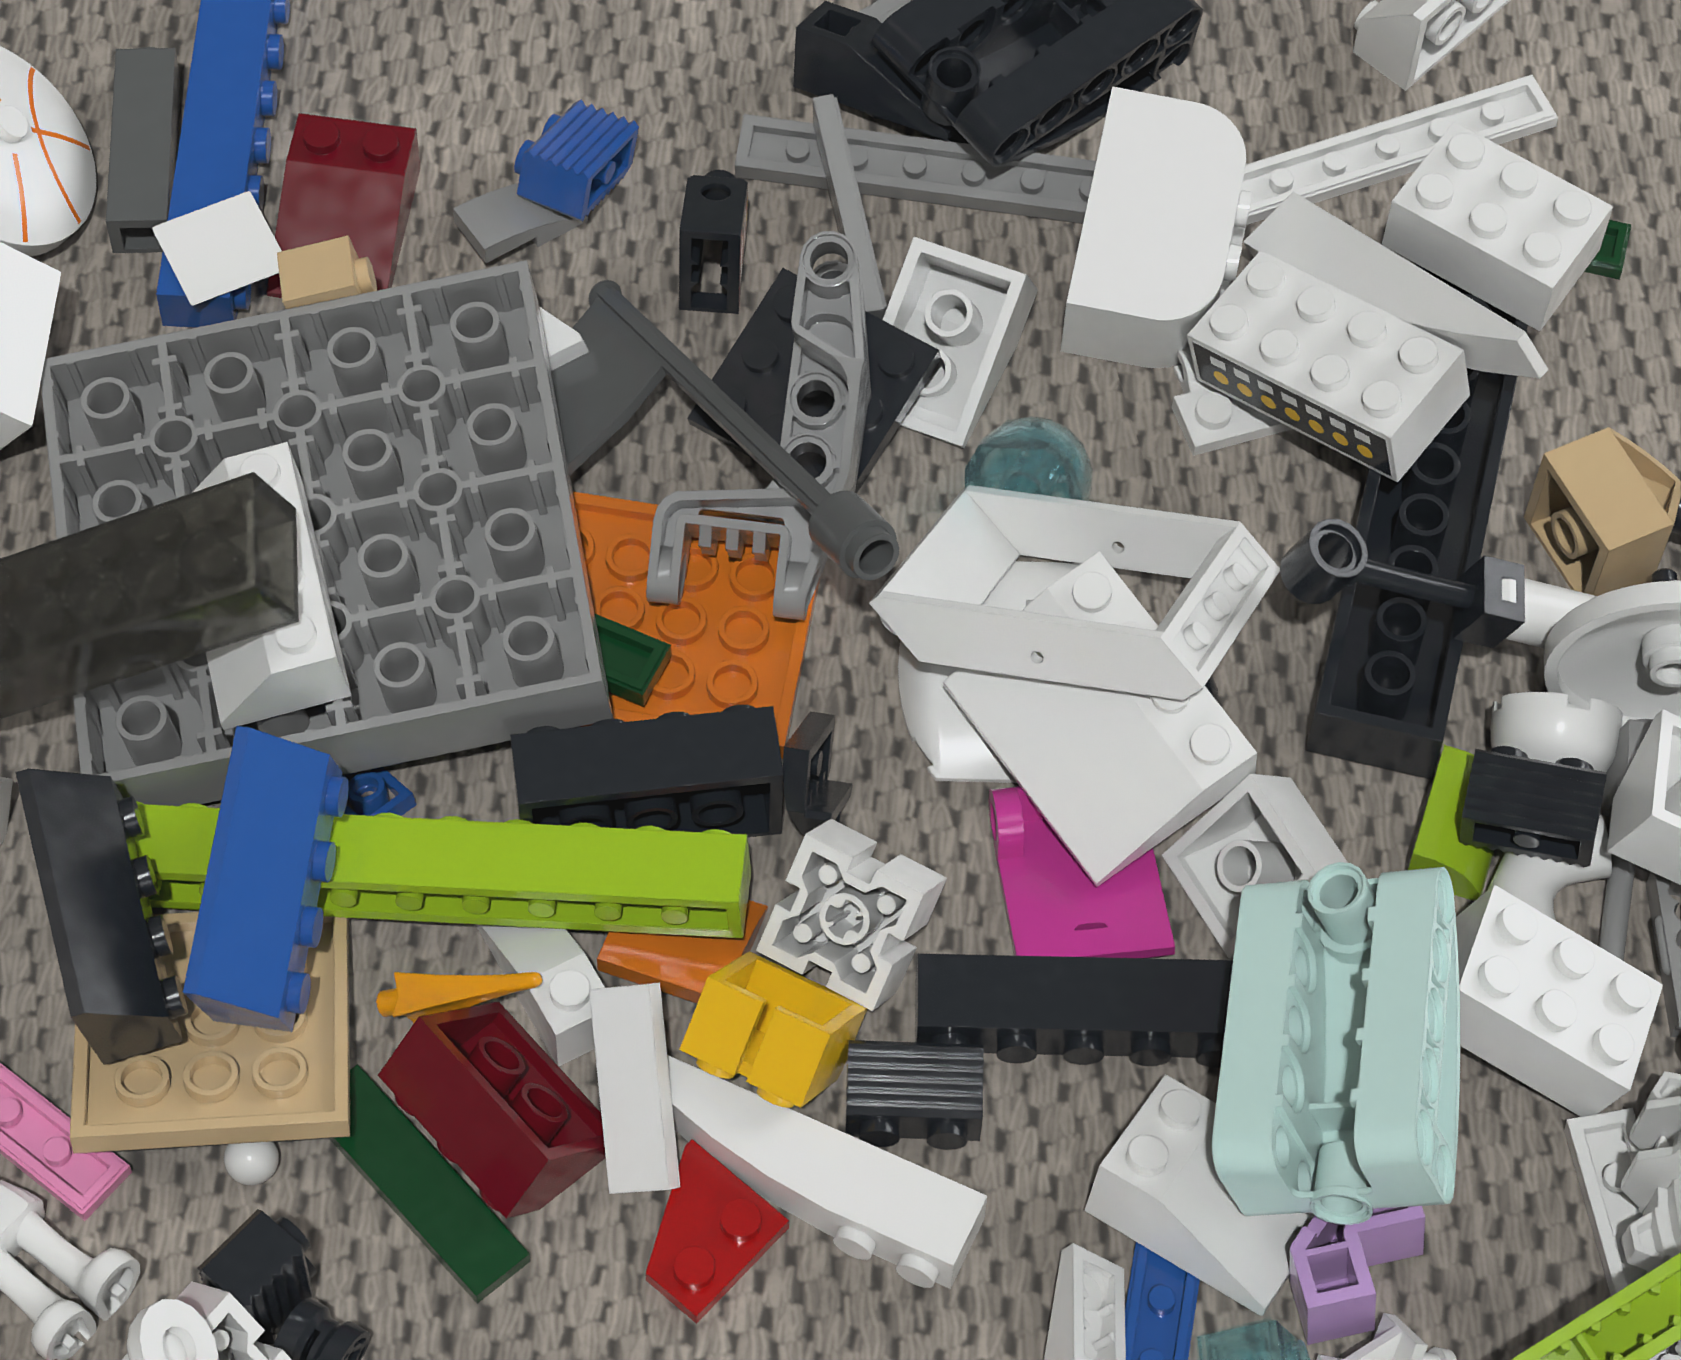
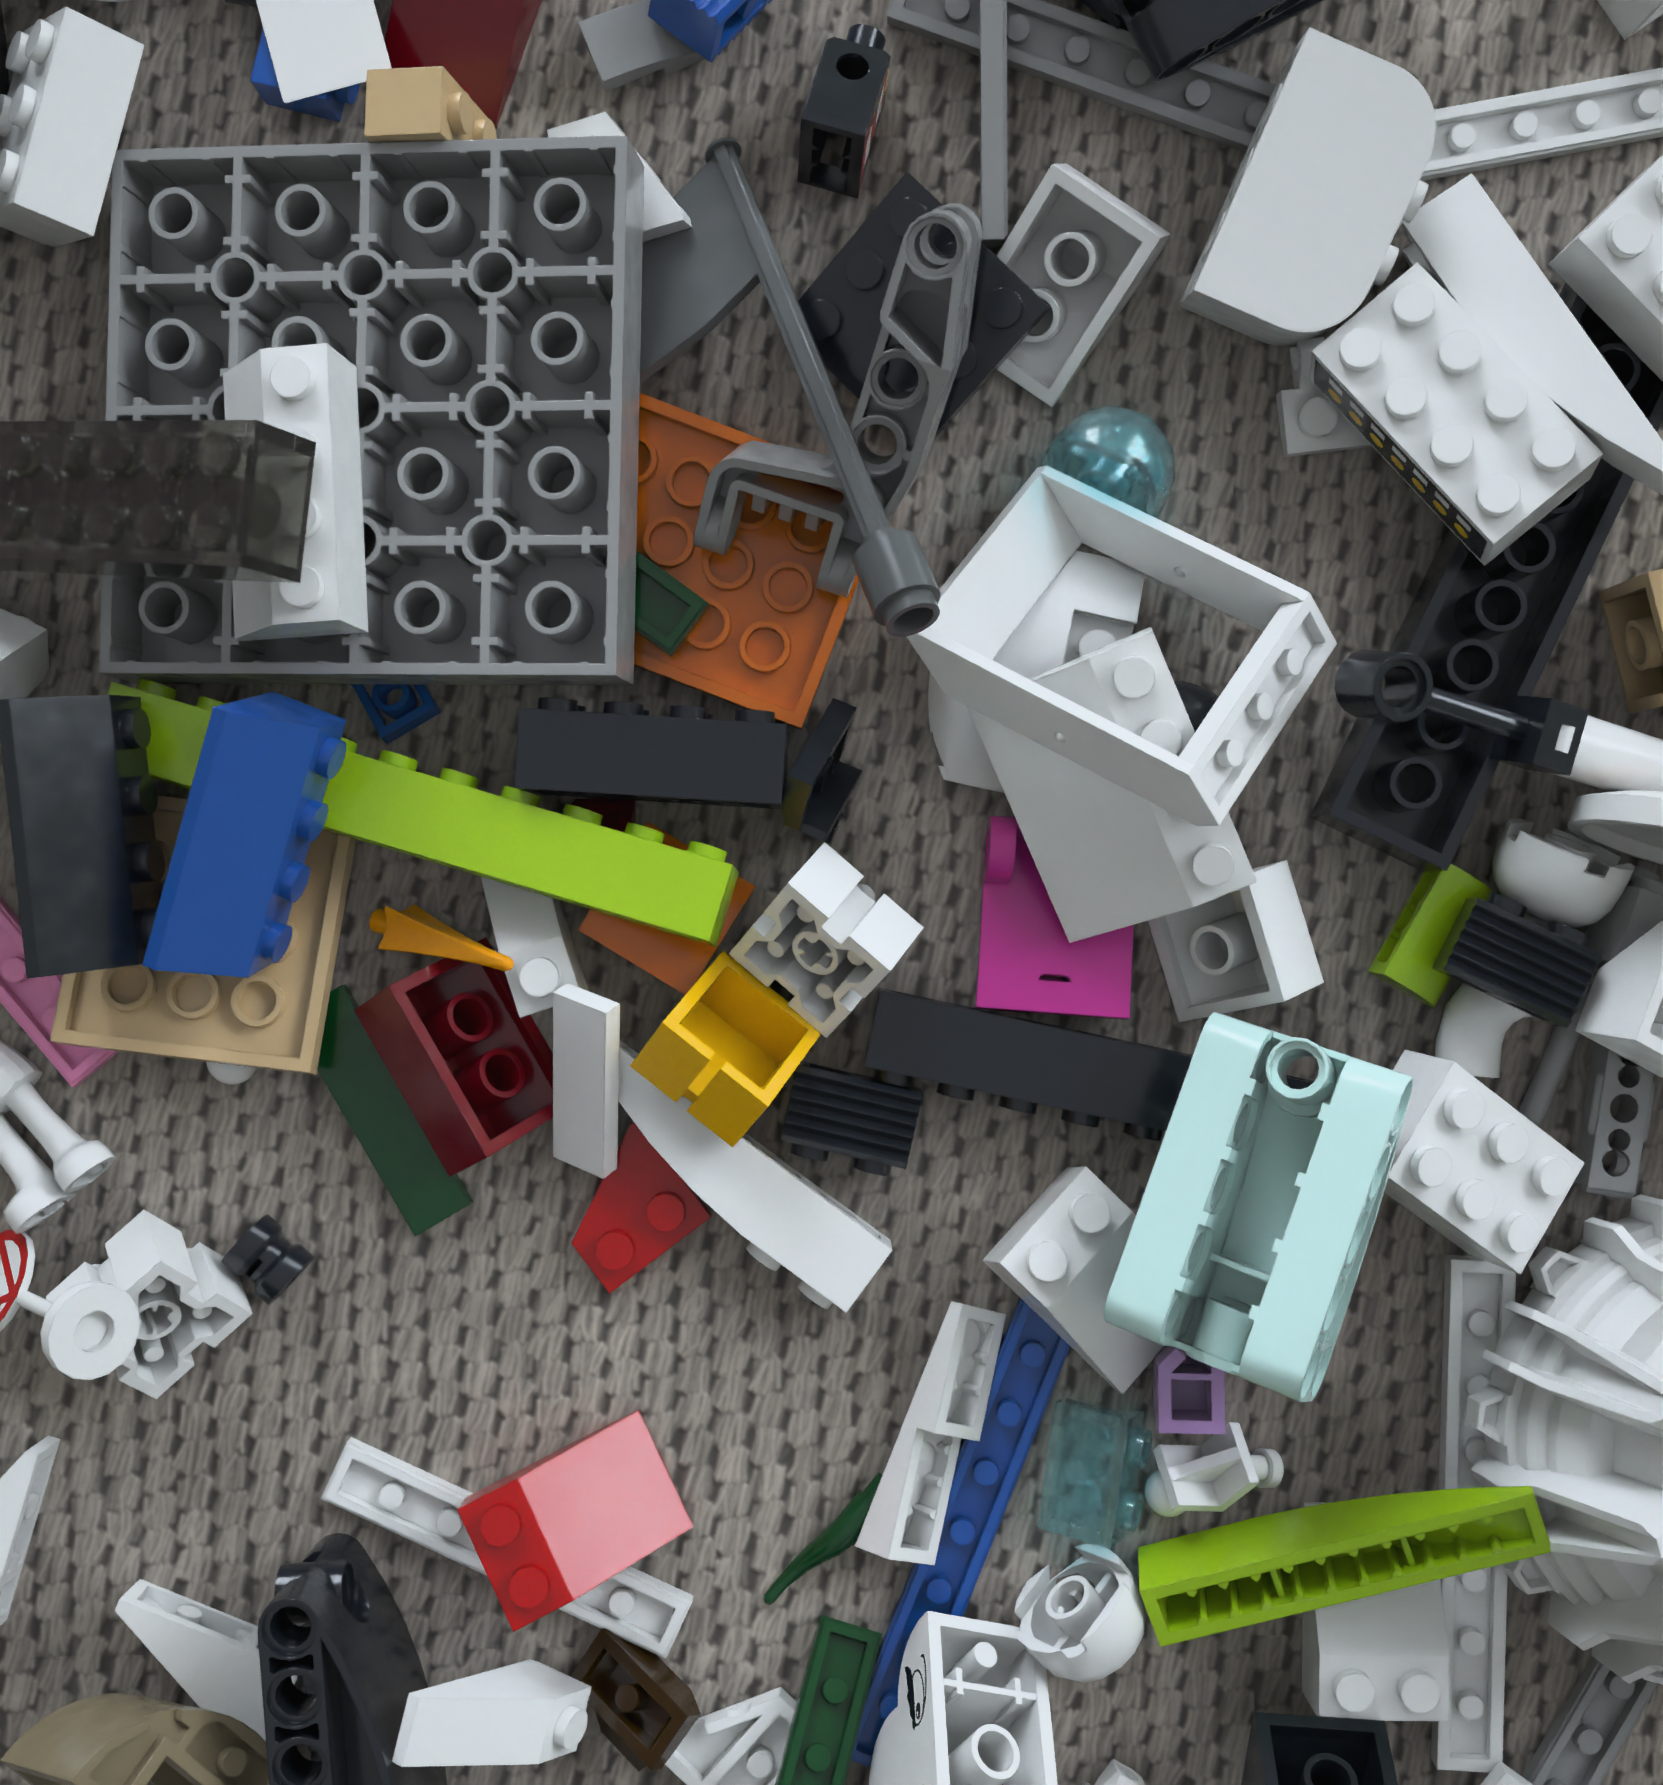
camera: 20 degrees right, 30 degrees up
(263, 1270) = (210, 1208): black brick -> none

